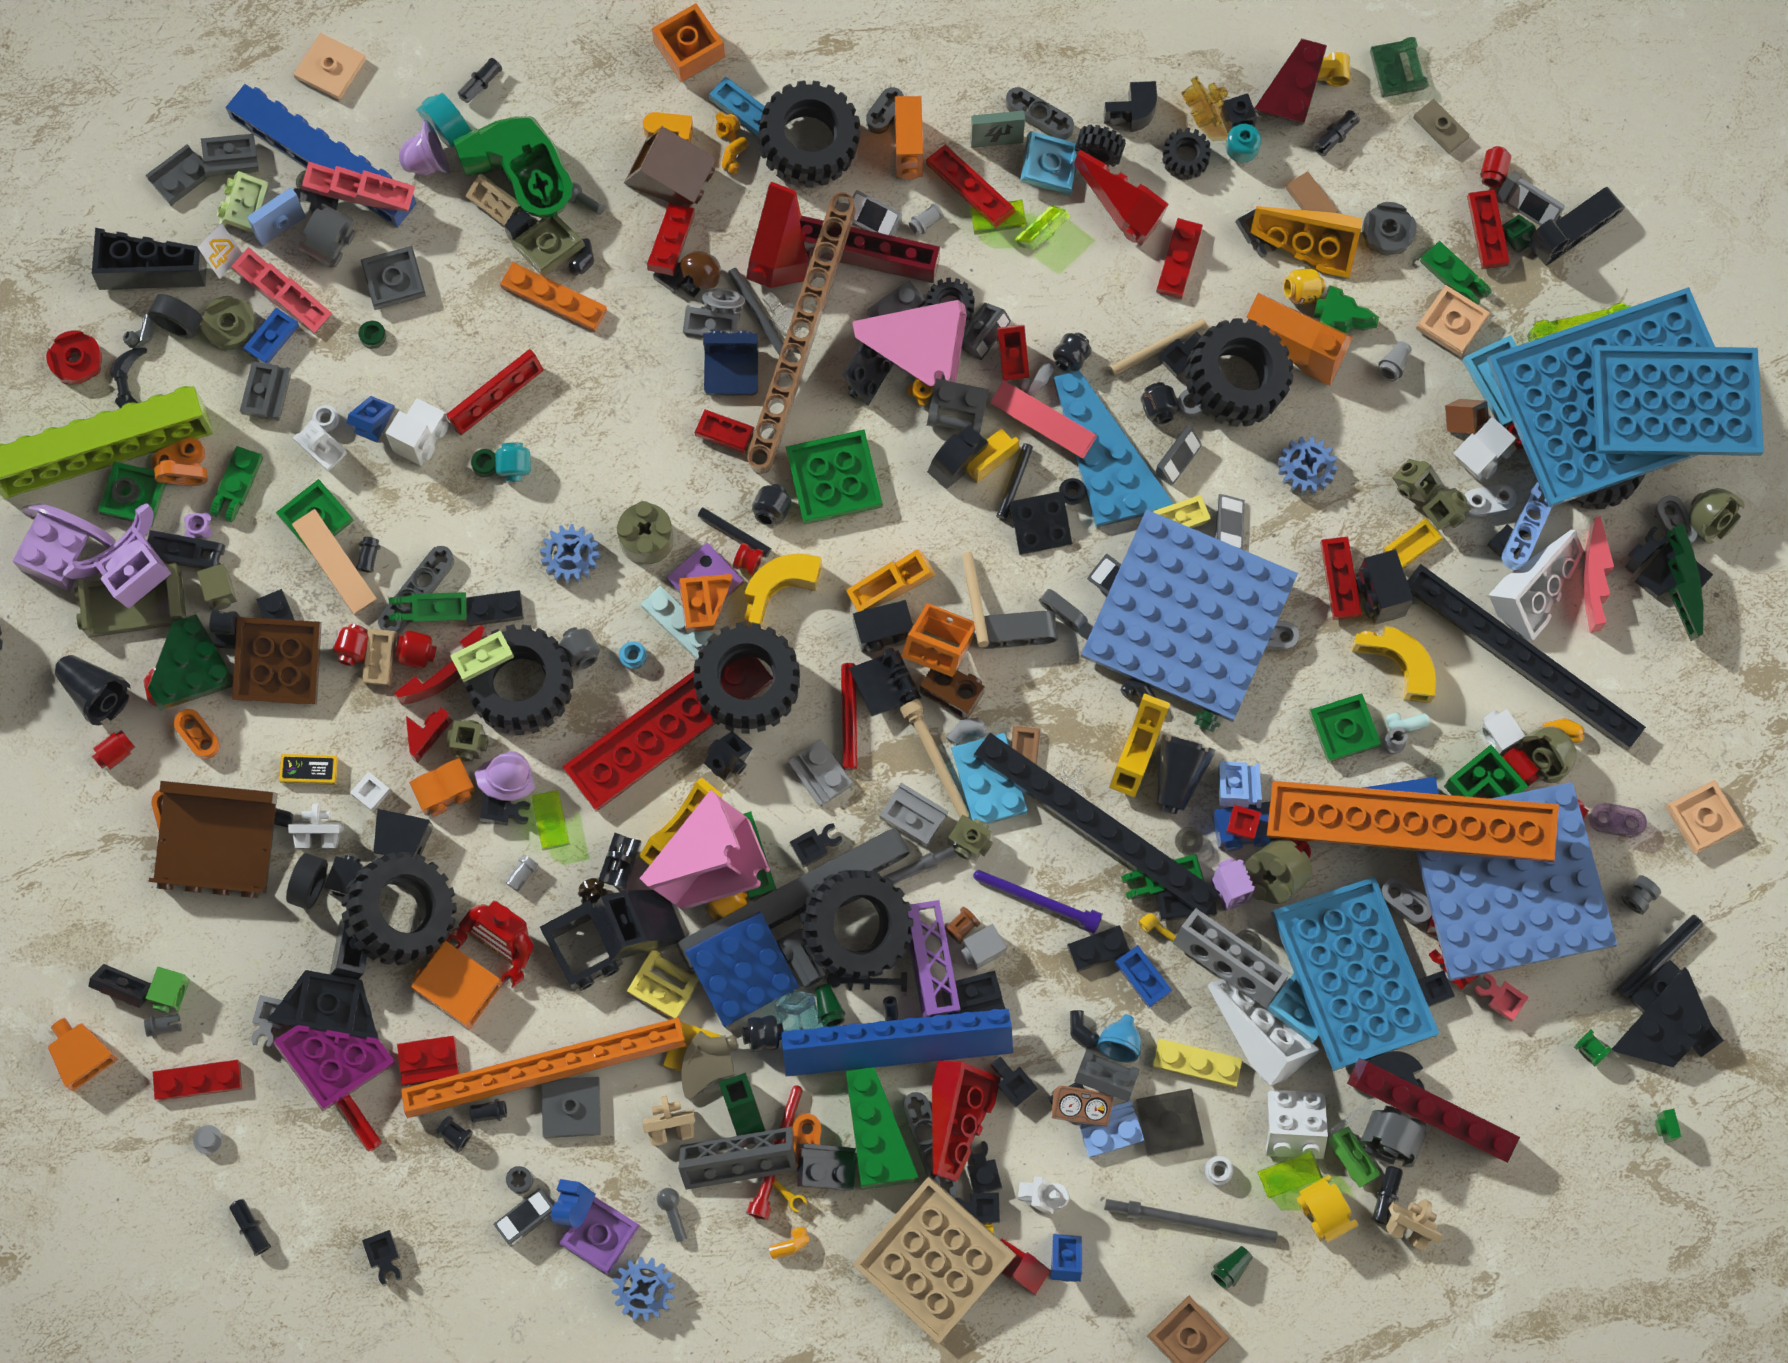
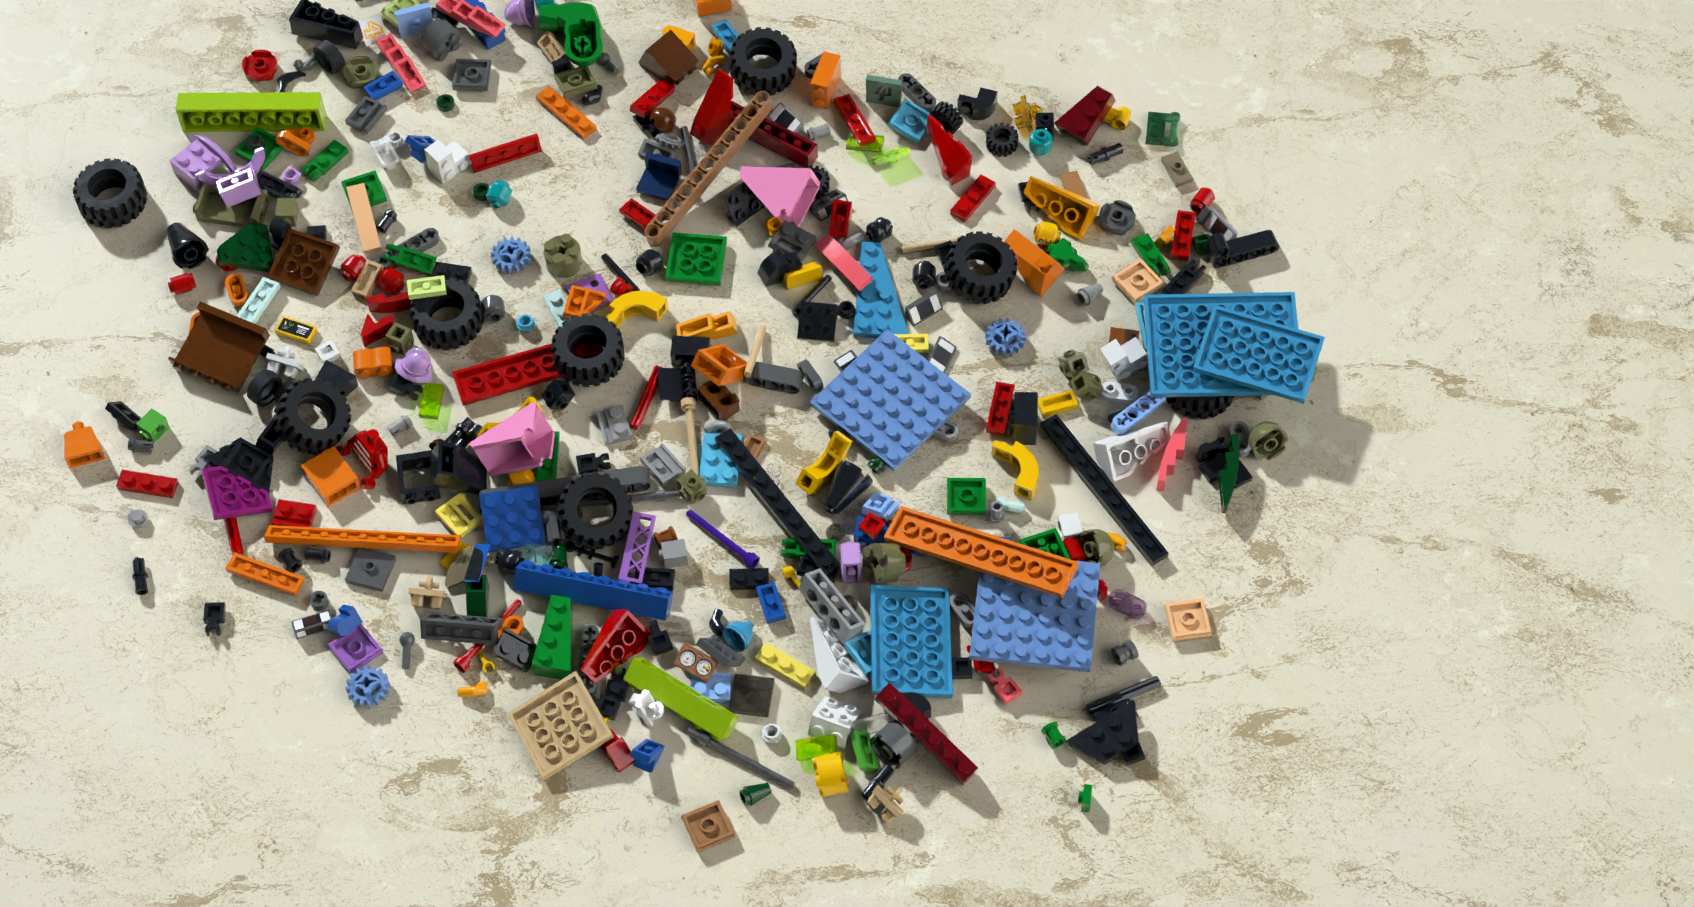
camera: 20 degrees right, 15 degrees down
(235, 745) = (259, 300): none -> light aqua plate
(427, 1166) = (265, 574): none -> orange plate
(723, 1056) = (477, 562): none -> black sticker
(1081, 1164) = (681, 698): none -> lime brick
(1465, 240) = (1165, 236): none -> light orange plate
(1514, 302) = (1184, 279): none -> black hinge

